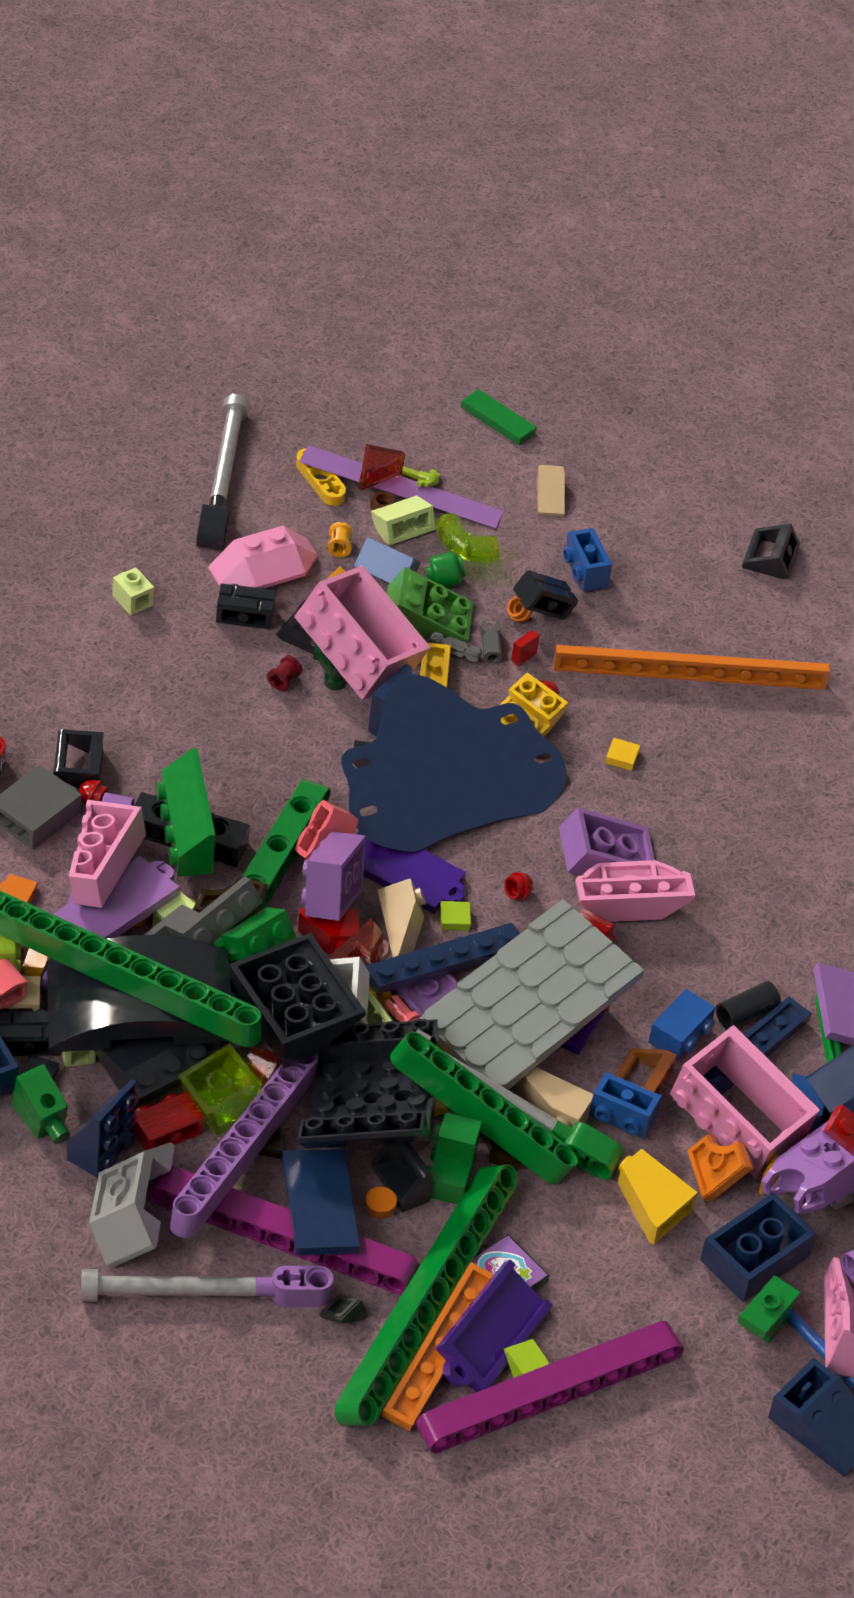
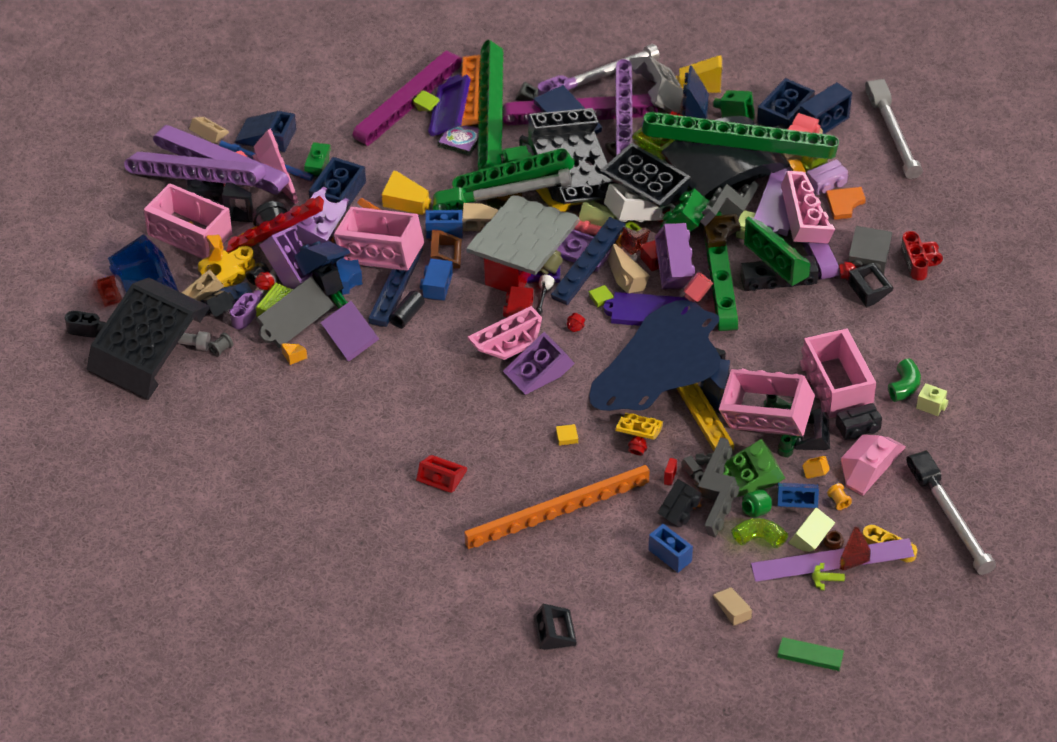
camera: 160 degrees right, 0 degrees up
(50, 1186) = (708, 71): none -> yellow slope
(142, 621) = (908, 384): none -> green cylinder
(223, 689) = (833, 346): none -> bright pink hose
(484, 594) = (718, 487): none -> dark grey bracket
(807, 750) = (439, 476): none -> red tile

